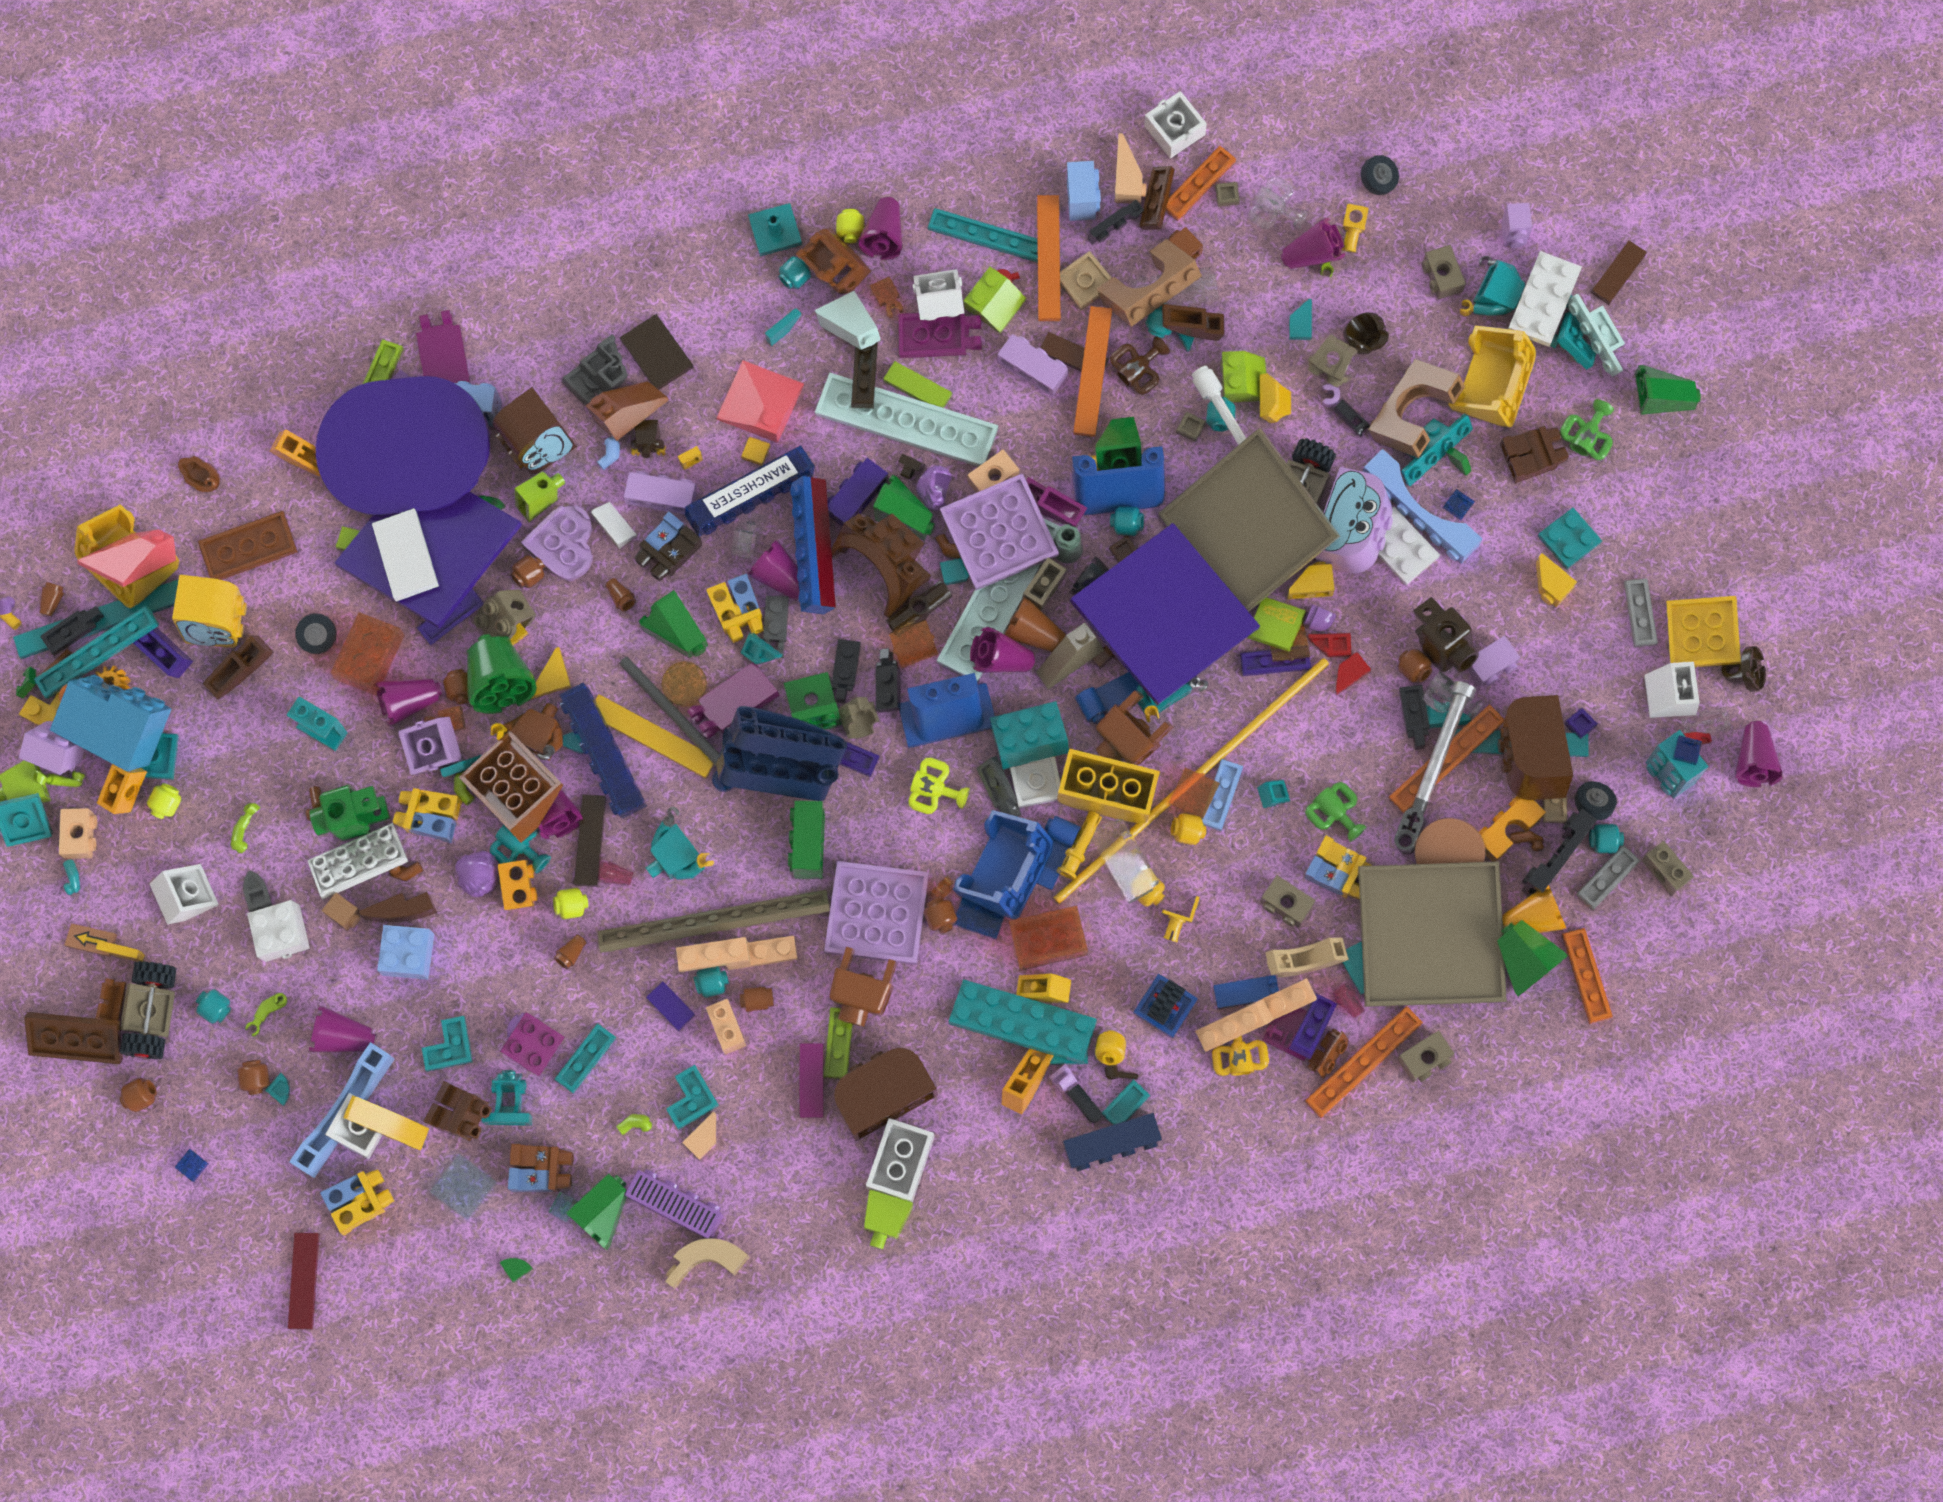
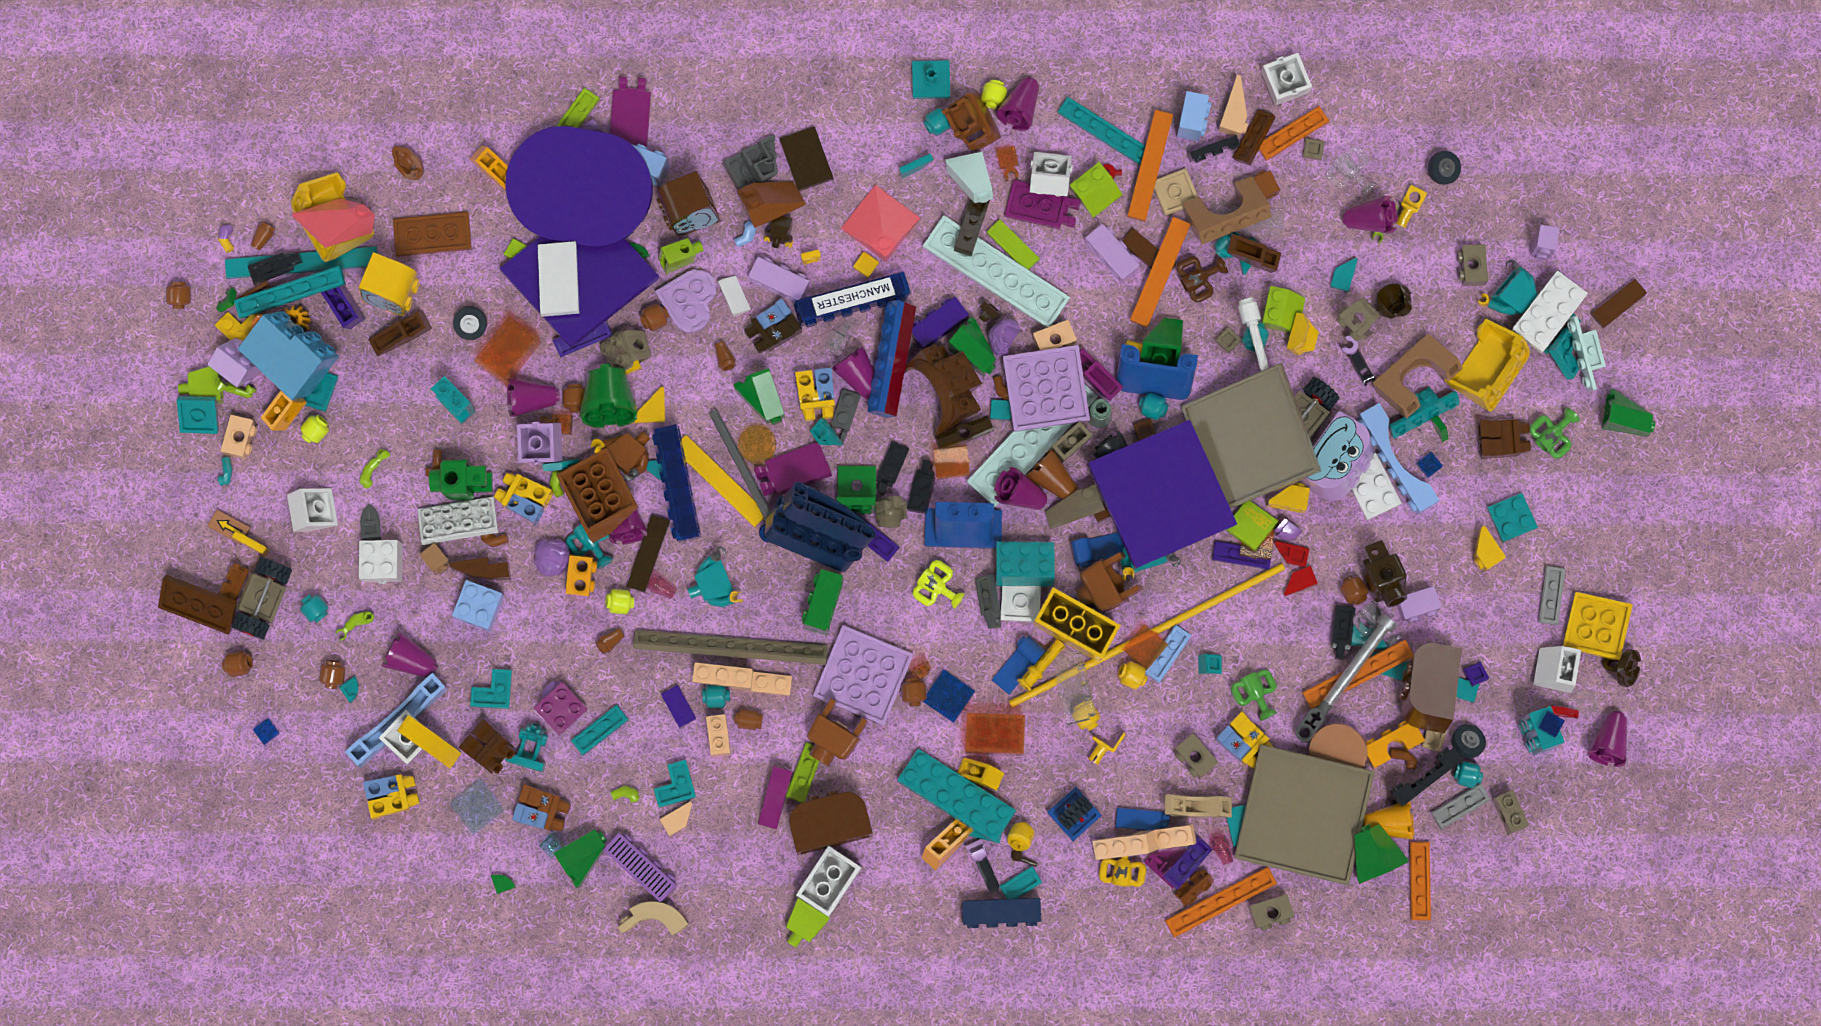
camera: 10 degrees right, 5 degrees up
(303, 1281) = (332, 848): dark red tile -> none
(1007, 865) = (978, 666): blue windscreen -> none

